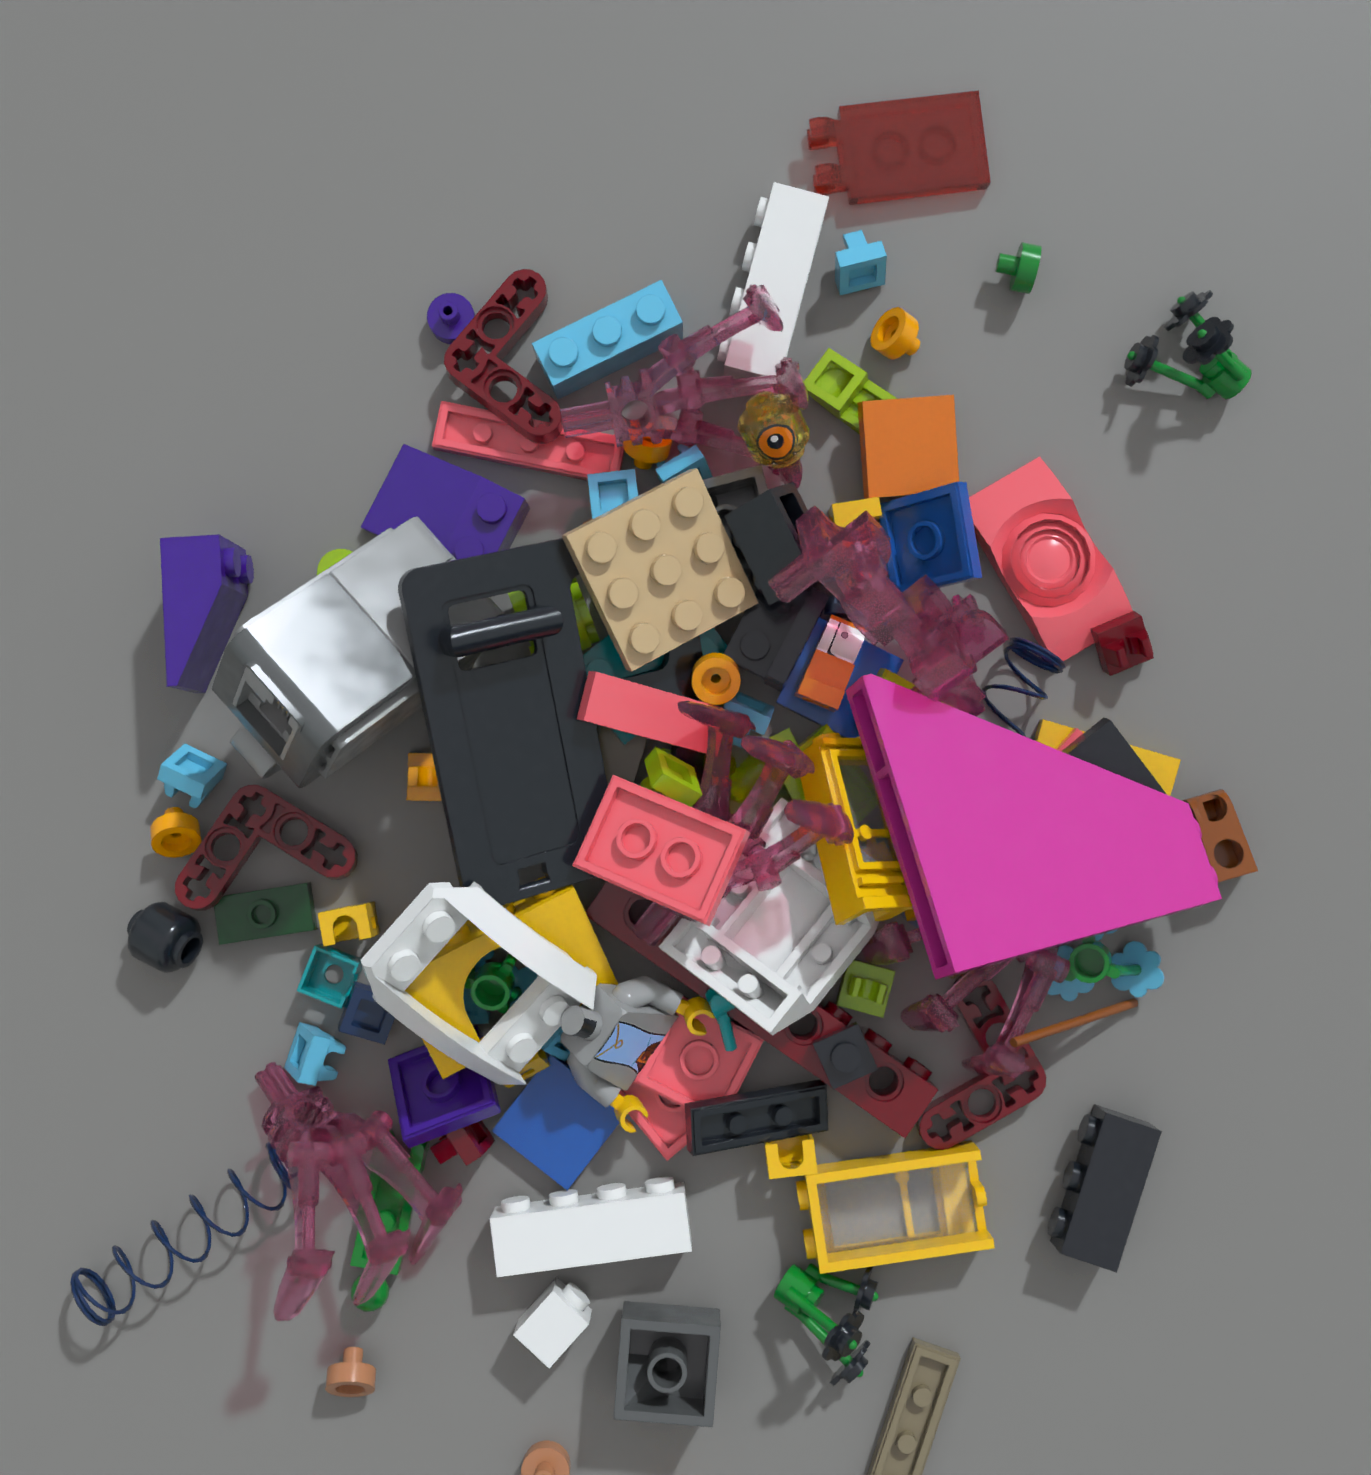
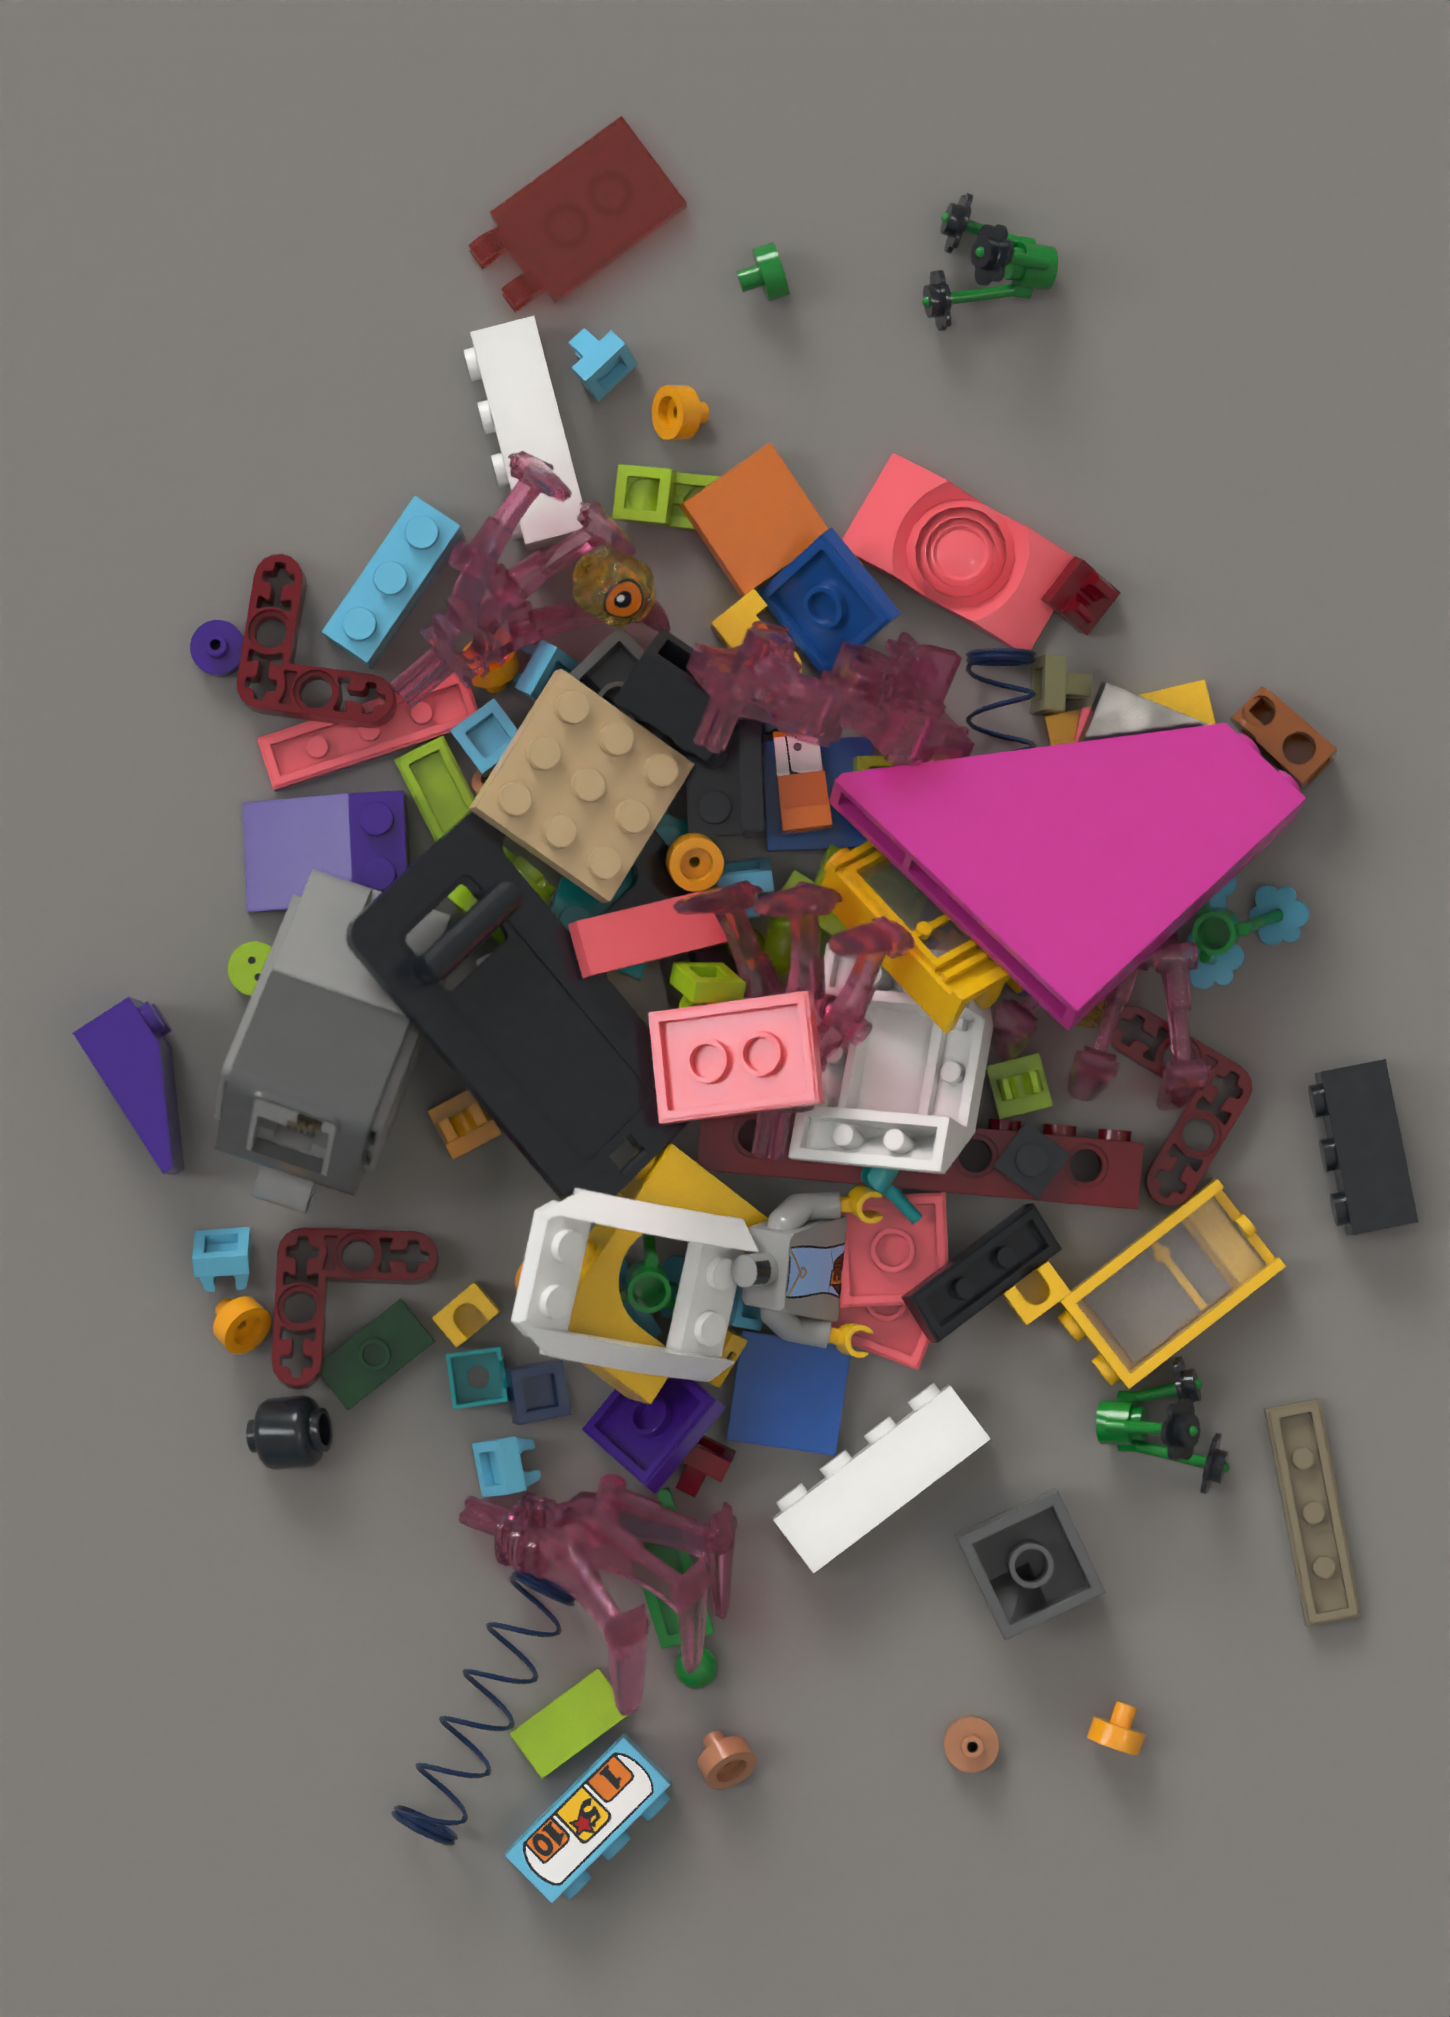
camera: 30 degrees left, 0 degrees up
(220, 1364) = (590, 1819): none -> brick
(243, 1277) = (568, 1723): none -> lime tile
(554, 1321) = (895, 1589): white brick -> none
(555, 506) = (436, 785): none -> lime tile
(1066, 700) = (1056, 685): none -> olive tile
(1073, 1022) = (1239, 1000): dark orange axle -> none

